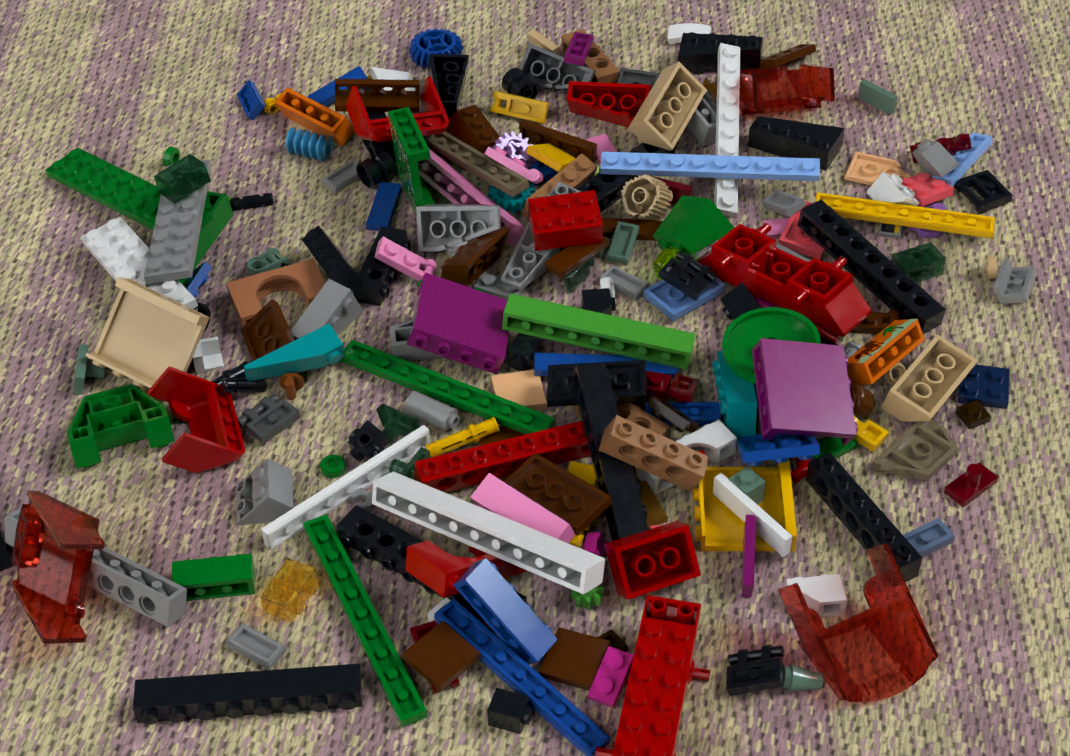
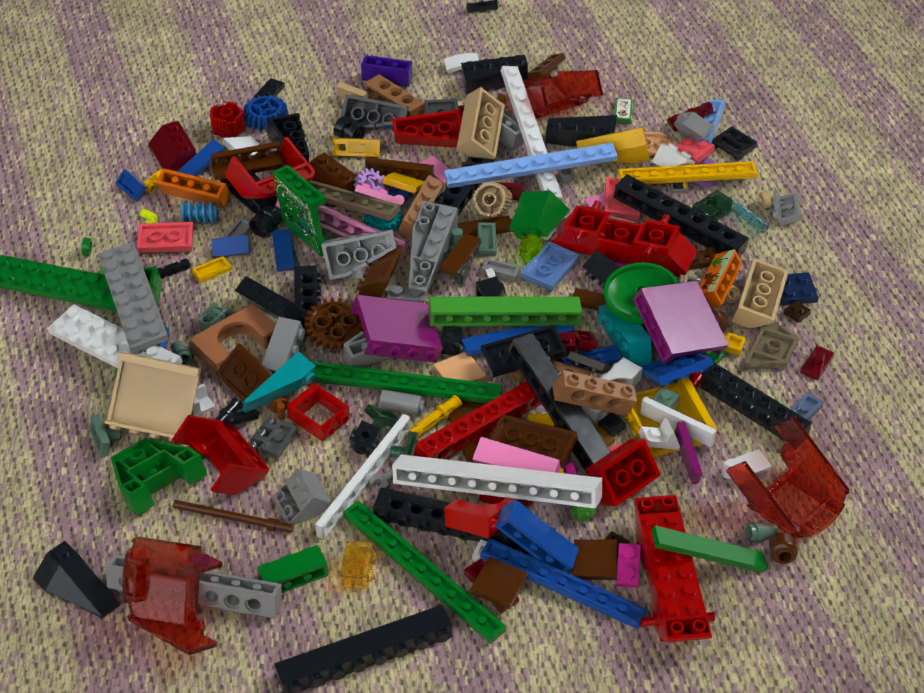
camera: 20 degrees left, 0 degrees up
(182, 178) = (124, 261): clear green brick -> none
(213, 298) = (179, 349): none -> sand green cone
(217, 515) = (270, 523): none -> reddish brown bar
(256, 140) = (150, 216): none -> neon yellow arm
(256, 646) = (349, 614): light grey tile -> none
(260, 165) = (165, 237): none -> coral plate
(294, 211) = (211, 269): none -> yellow tile
(314, 66) = (172, 146): none -> dark red slope
(325, 189) = (230, 246): none -> blue tile
(332, 466) = (342, 463): green tile -> none
(333, 380) = (308, 399): none -> red window
(388, 48) = (227, 120): none -> red brick
(393, 304) = (327, 319): none -> reddish brown gear
(403, 259) = (326, 289): bright pink plate -> none
(457, 23) = (271, 87): none -> black plate
(509, 711) = (566, 609): black brick -> none
(565, 220) = (445, 230): red brick -> none
(578, 48) = (387, 91): magenta tile -> none
(606, 29) = (395, 70): none -> dark purple brick
(671, 498) = (612, 424): none -> black plate
(684, 279) = (551, 253): black plate -> none
(709, 339) = (589, 298): none -> reddish brown tile
(712, 683) = (708, 549): none -> green tile
(720, 529) = (660, 437): none -> white slope
(755, 187) = (566, 175): none -> light grey bush
(758, 675) = (736, 534): black plate -> none
(783, 203) = (595, 182): light grey tile -> none
(818, 708) = (783, 548): none -> reddish brown head
(838, 166) = (629, 145): none -> yellow wedge
(860, 125) = (623, 110): none -> tile
(877, 96) = (627, 85): sand green tile -> none
(963, 286) = (751, 218): none -> clear light blue pin

